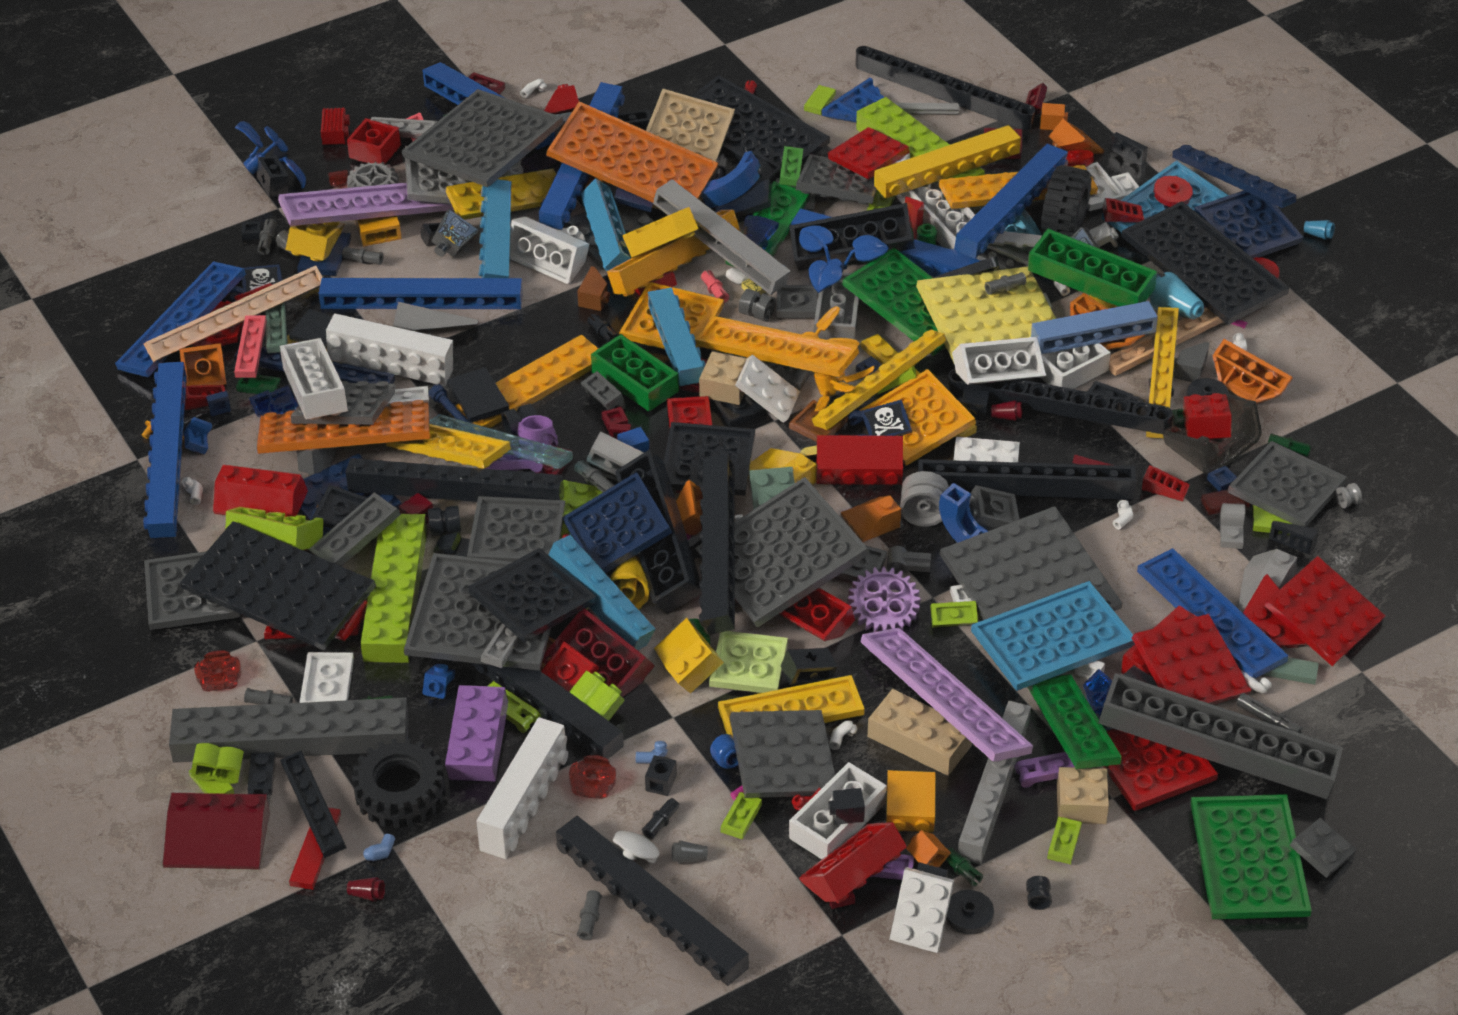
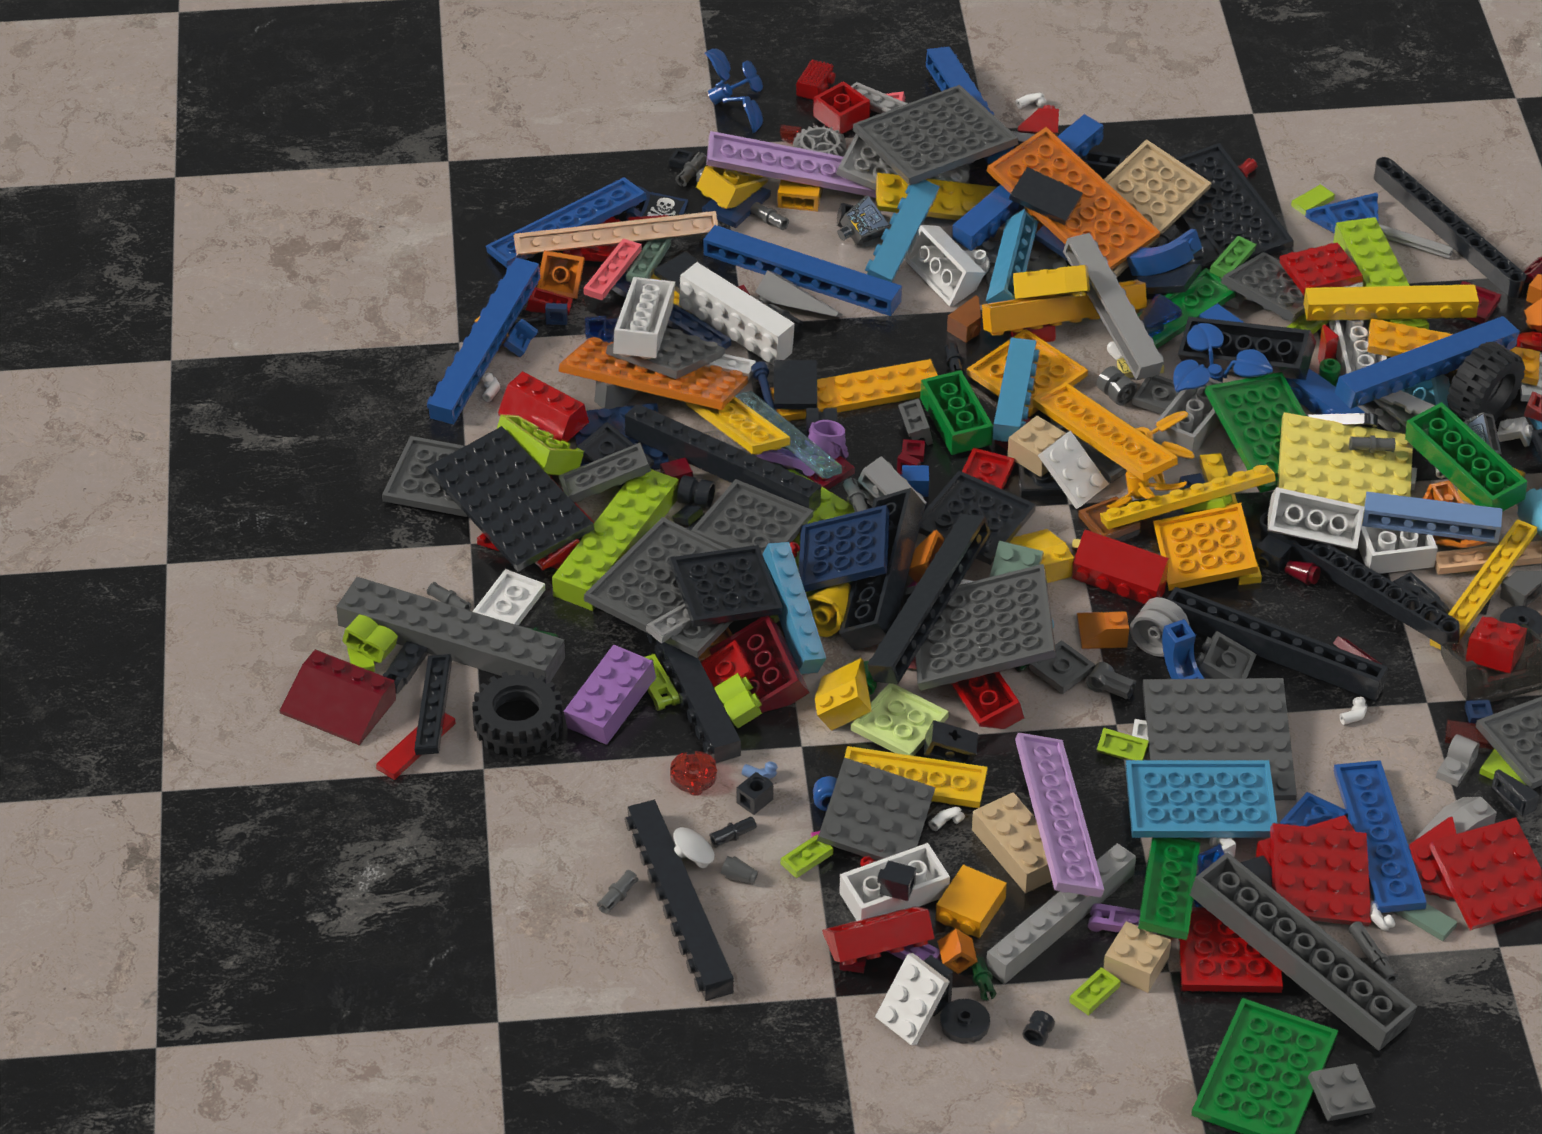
camera: 25 degrees right, 0 degrees up
(223, 680) = (425, 567): clear red plate -> none
(259, 384) = (602, 307): dark green tile -> none
(272, 176) = (727, 112): black brick -> none
(368, 888) = (439, 796): dark red cone -> none
(381, 850) = (468, 767): medium blue arm -> none
(437, 679) = (606, 633): blue bracket -> none
(490, 83) = (986, 83): dark red plate -> none
(522, 788) = (620, 757): white brick -> none
(609, 160) = (1045, 196): none -> black tile
(714, 285) = (1089, 354): coral pin -> none
(883, 420) = (1169, 539): flag -> none
(883, 583) = (1062, 709): lavender gear -> none
(985, 450) = (1257, 603): white plate -> none
(1148, 612) = (1312, 810): none -> blue wing
(1158, 482) = (1410, 684): red slope -> none

